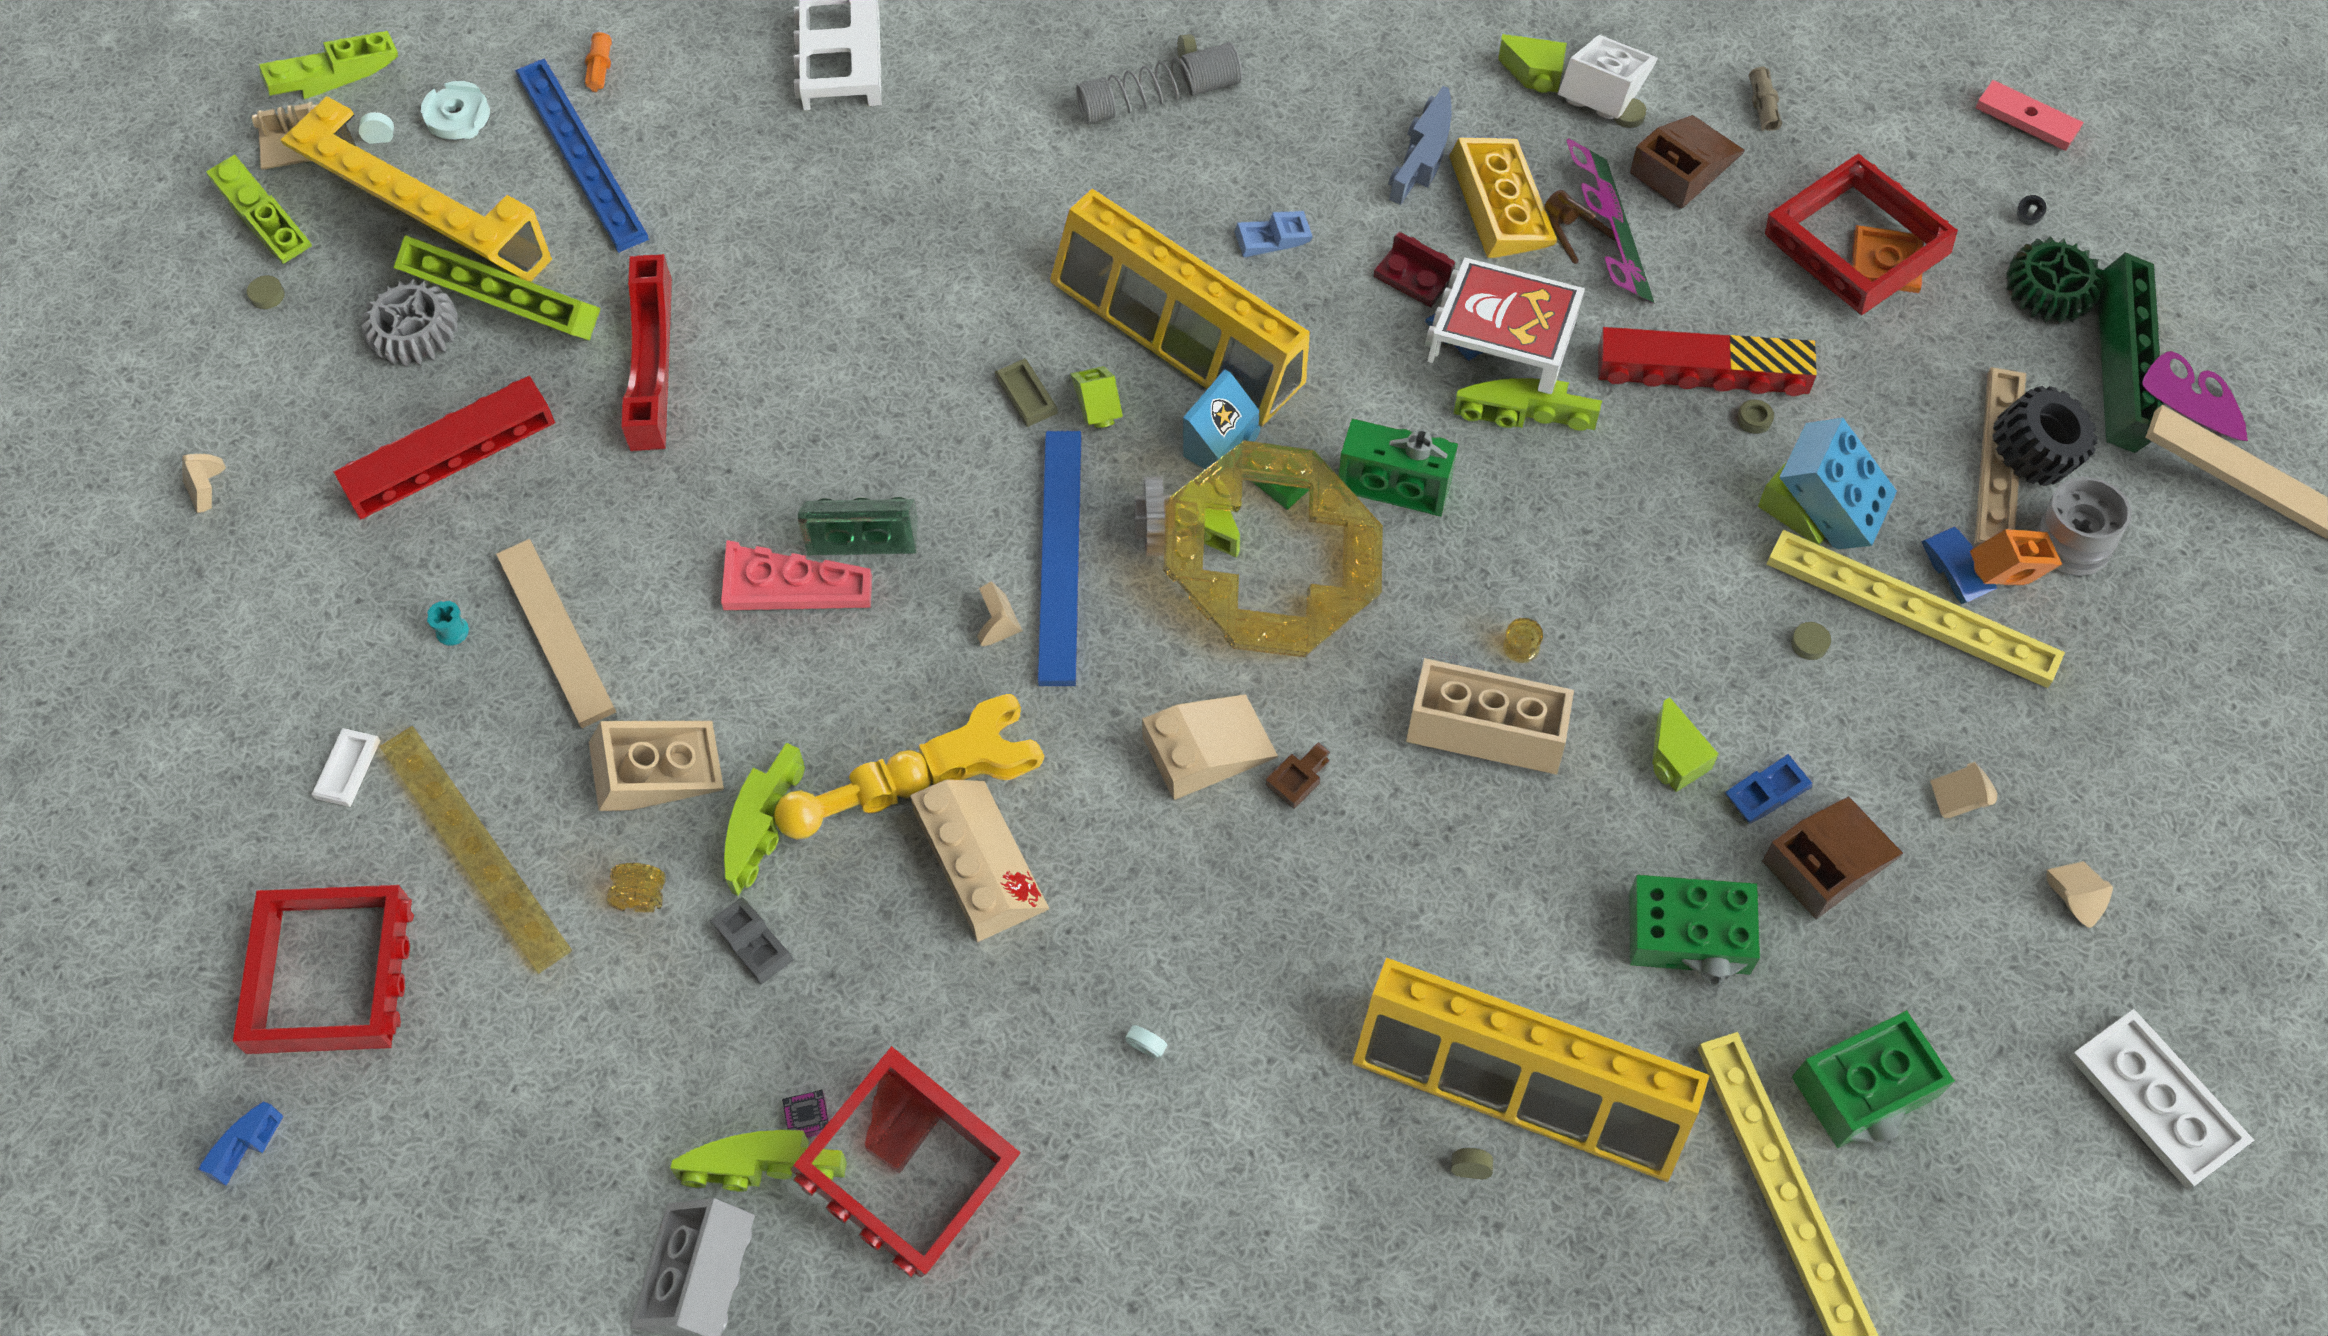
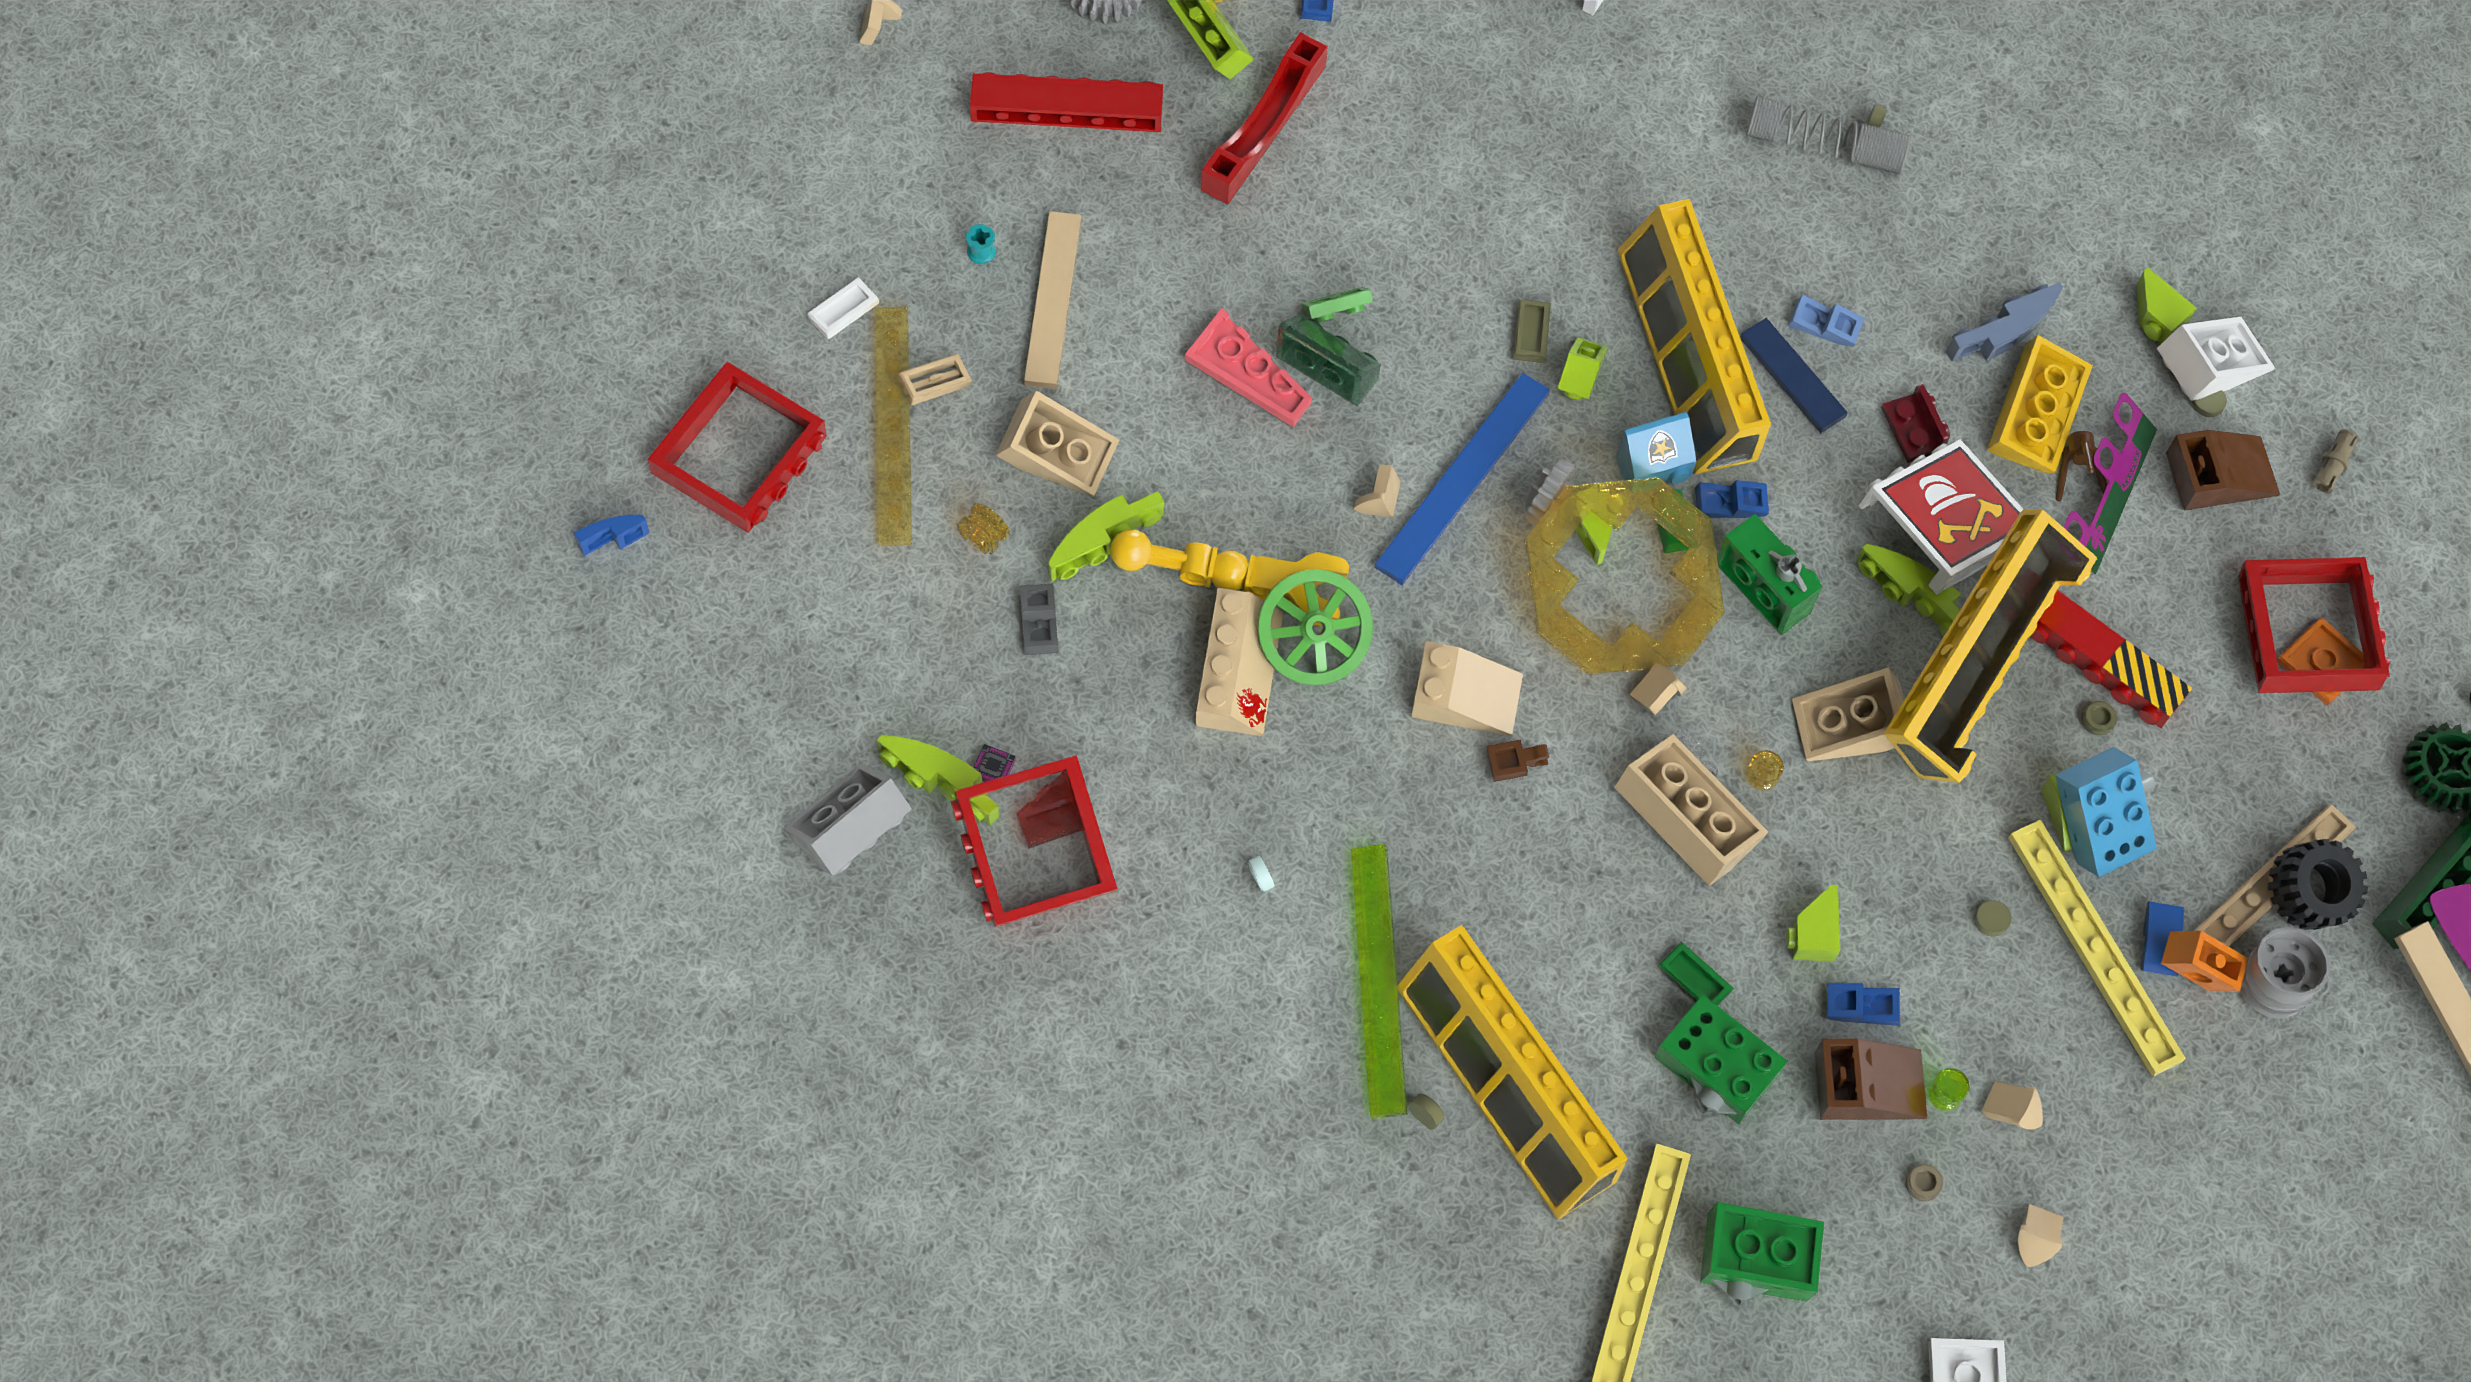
camera: 30 degrees right, 5 degrees up
(481, 804) = (917, 397): none -> tan tile
(842, 463) = (1350, 301): none -> bright green plate
(1020, 773) = (1306, 621): none -> bright green wheel
(1290, 294) = (1793, 375): none -> dark blue tile
(1314, 426) = (1733, 501): none -> blue slope
(1334, 1071) = (1379, 982): none -> clear neon green tile
(1376, 628) = (1657, 688): none -> tan tile
(1561, 545) = (1849, 716): none -> tan slope
(1607, 864) = (1695, 975): none -> green tile
(1620, 307) = (1984, 644): none -> window
(1901, 807) = (1951, 1083): none -> clear neon green wheel
(1947, 913) = (1924, 1182): none -> dark tan tile

